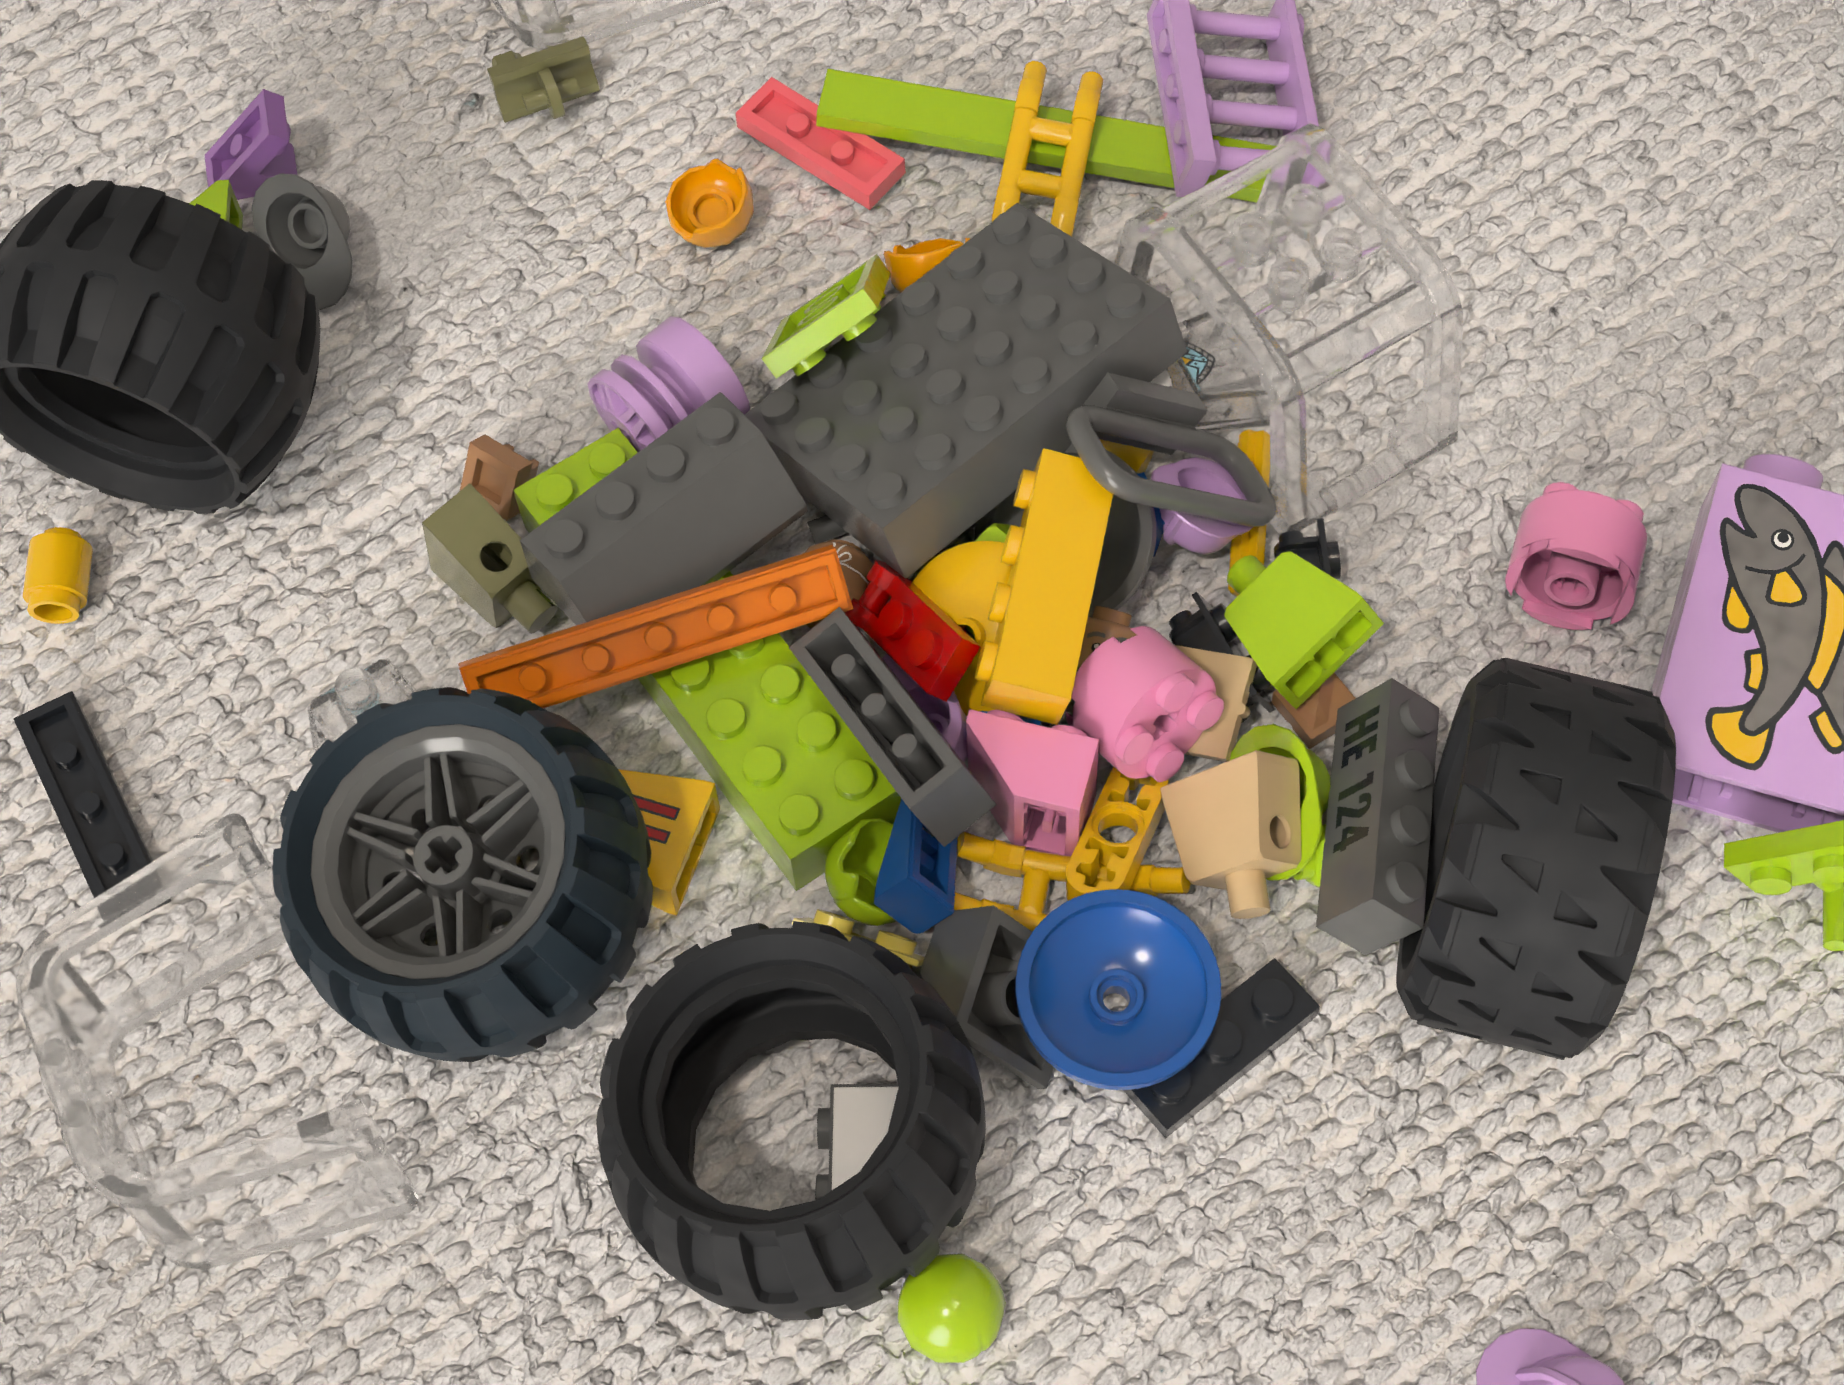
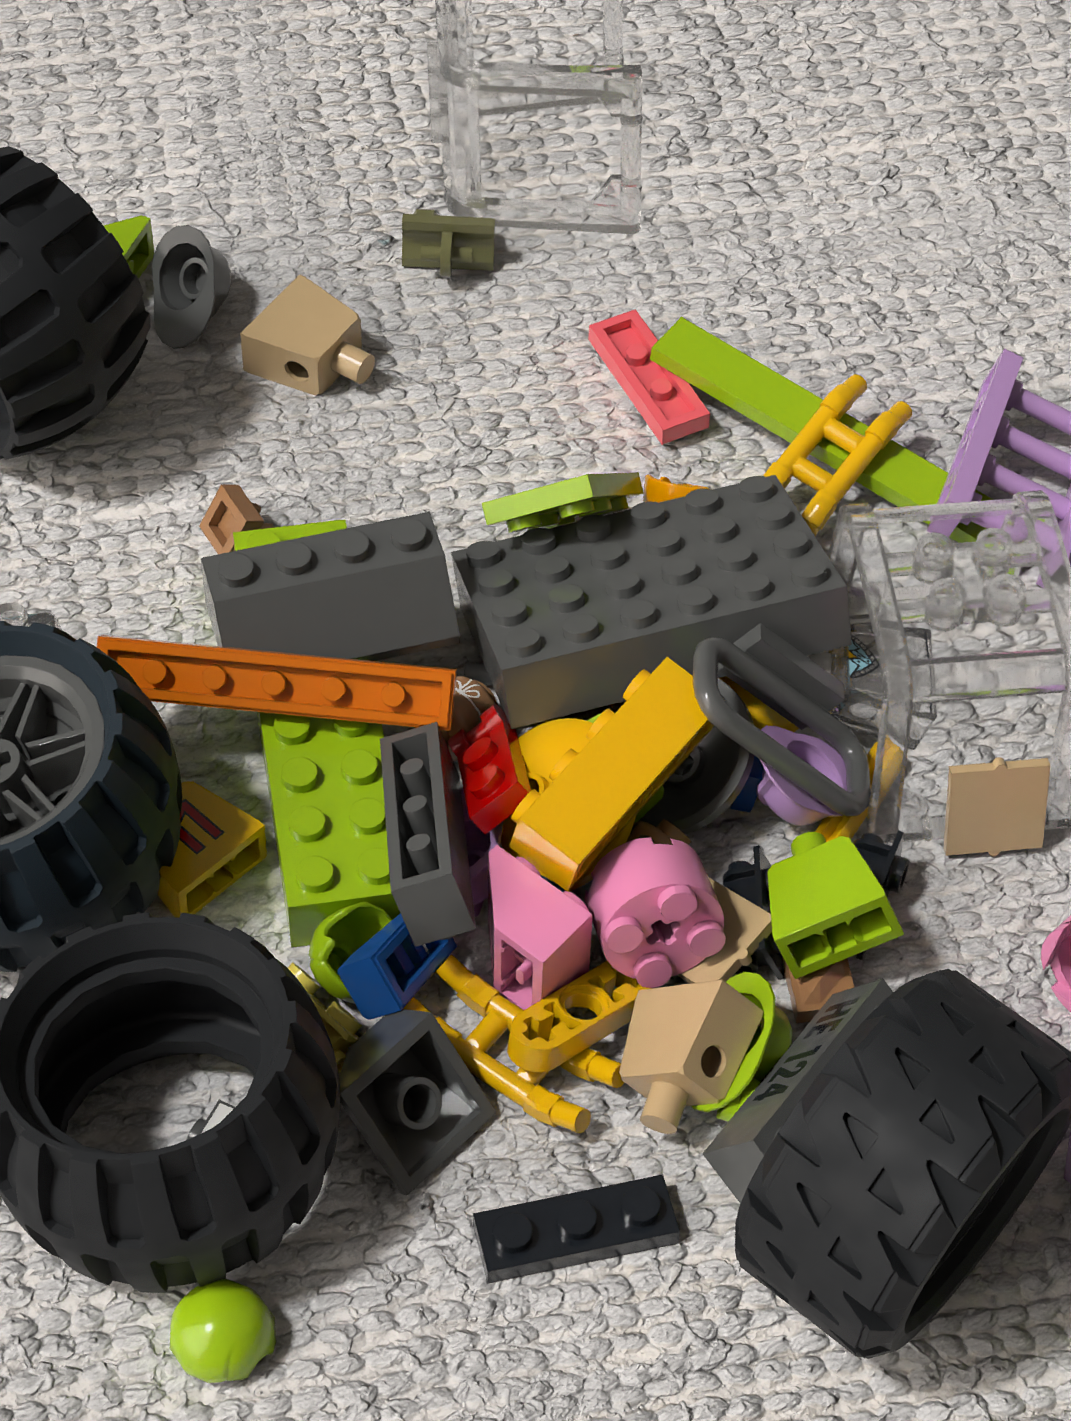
camera: 20 degrees right, 10 degrees down
(253, 147) = (189, 203): medium lavender slope -> none
(460, 246) = (306, 340): none -> tan torso
(484, 562) = (174, 577): olive torso -> none
(671, 381) = (420, 487): lavender wheel -> none
(710, 204) = (527, 387): light orange hair -> none
(1127, 948) = (511, 1097): blue dish -> none
(1393, 454) = (996, 806): none -> tan piece

